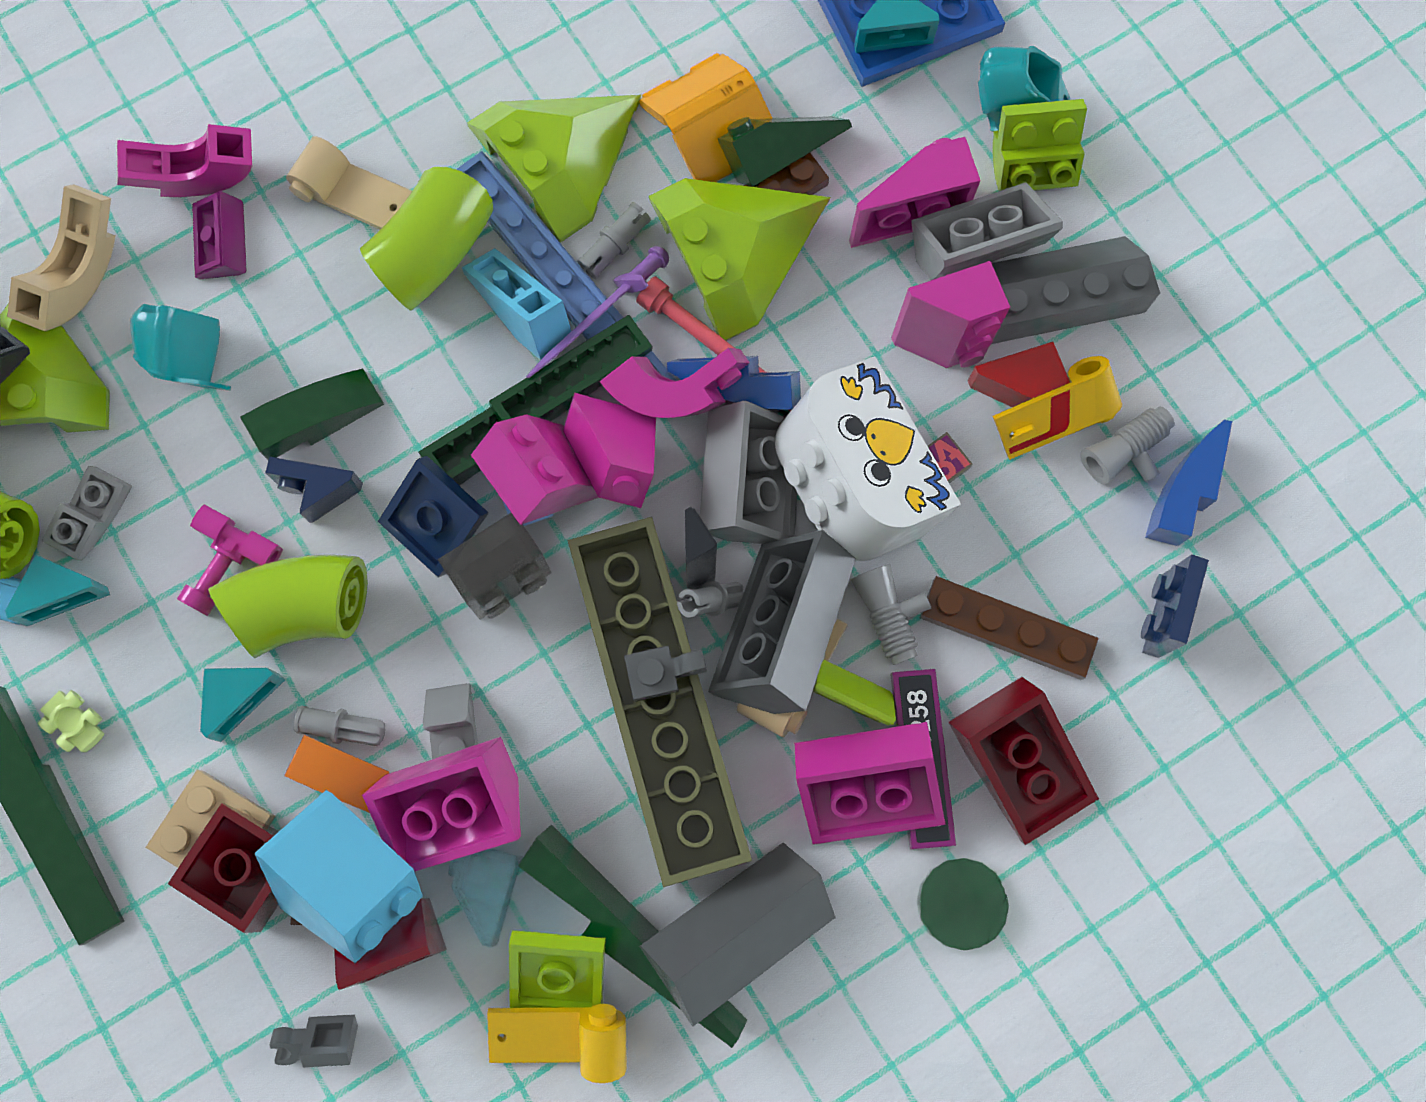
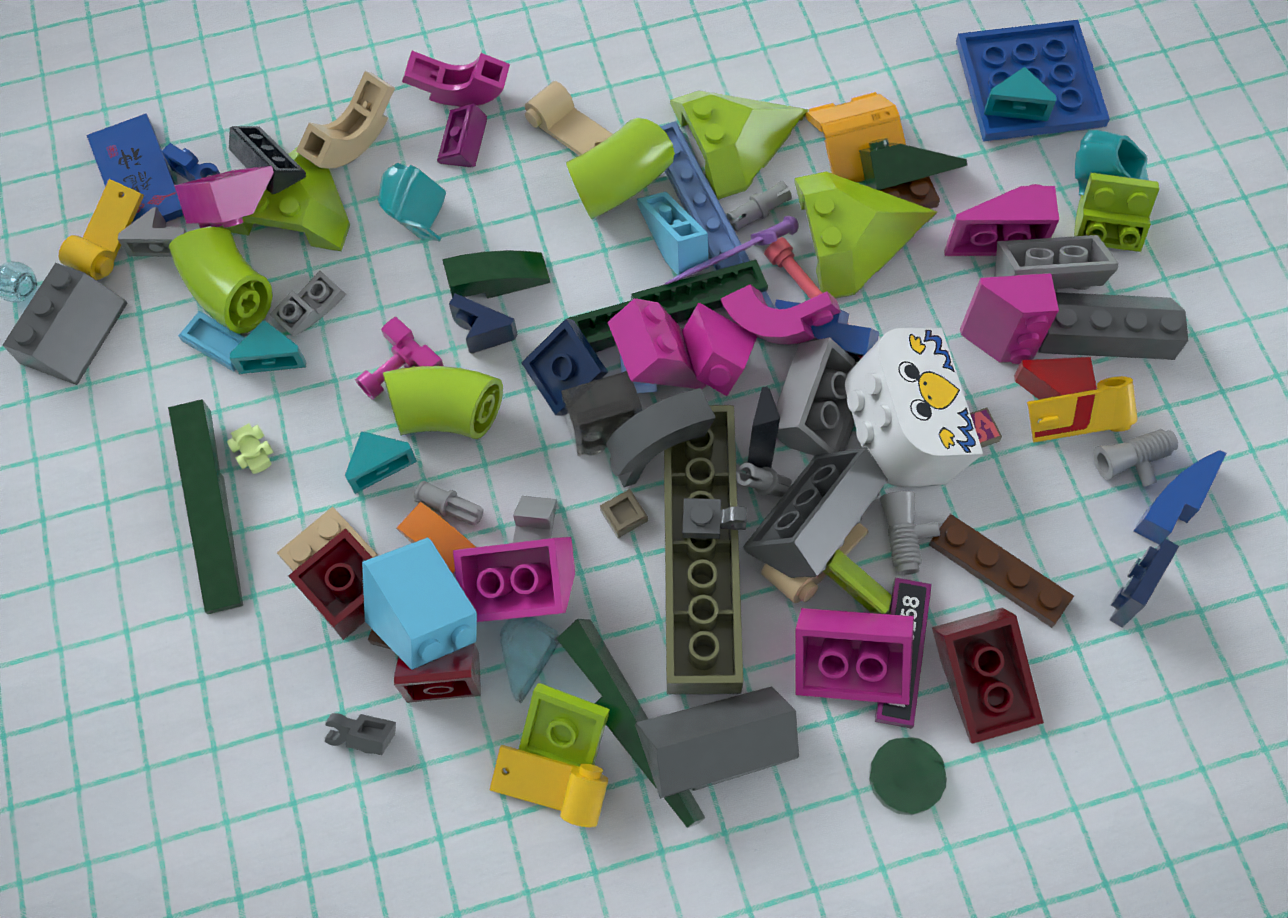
camera: 20 degrees right, 10 degrees down
(554, 678) = (623, 513): none -> dark tan tile
(570, 577) = (655, 430): none -> dark grey arch

